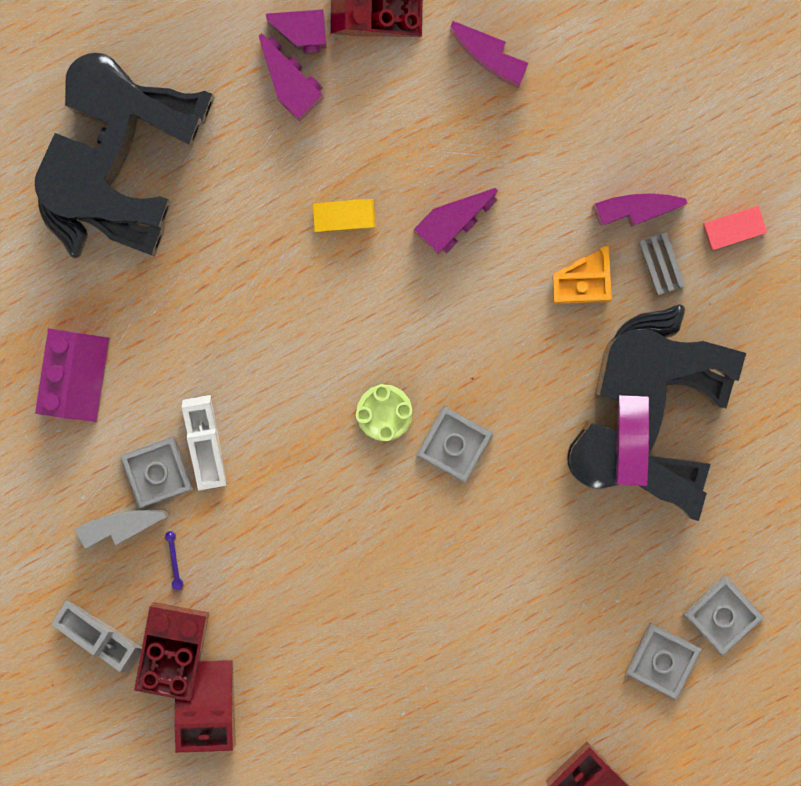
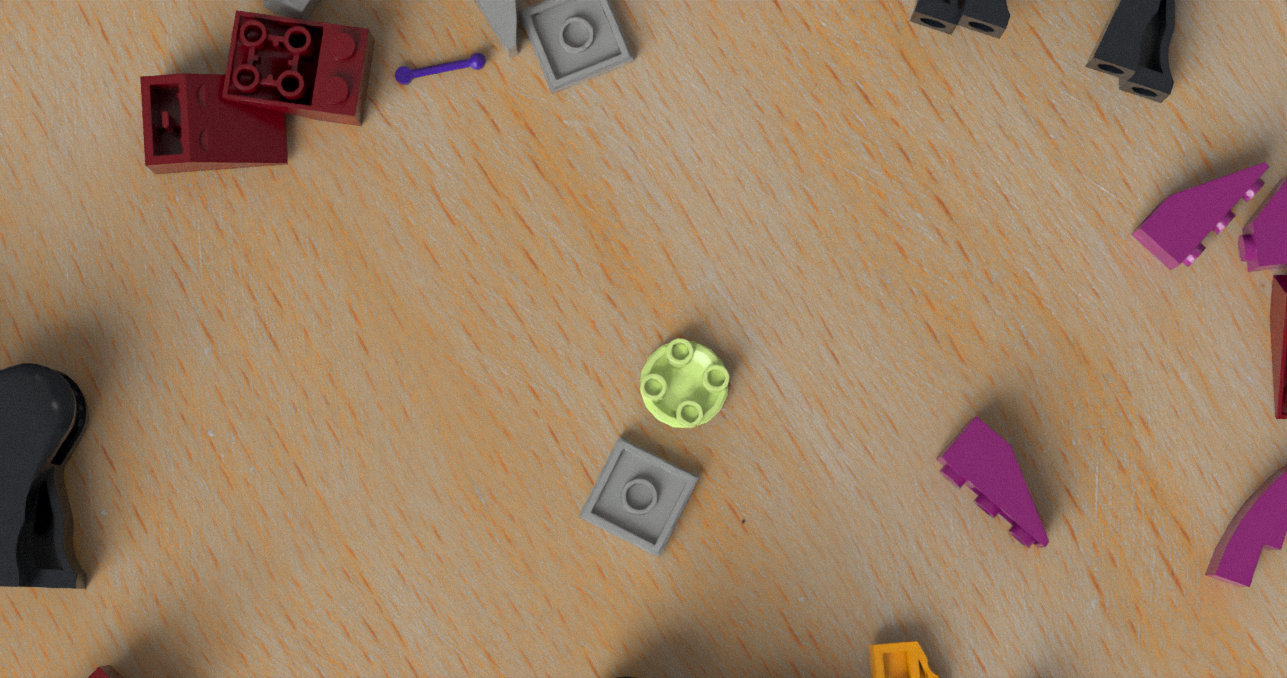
camera: 85 degrees right, 5 degrees down
(204, 442) = (626, 105): white slope -> none
(344, 215) = (990, 308): yellow slope -> none

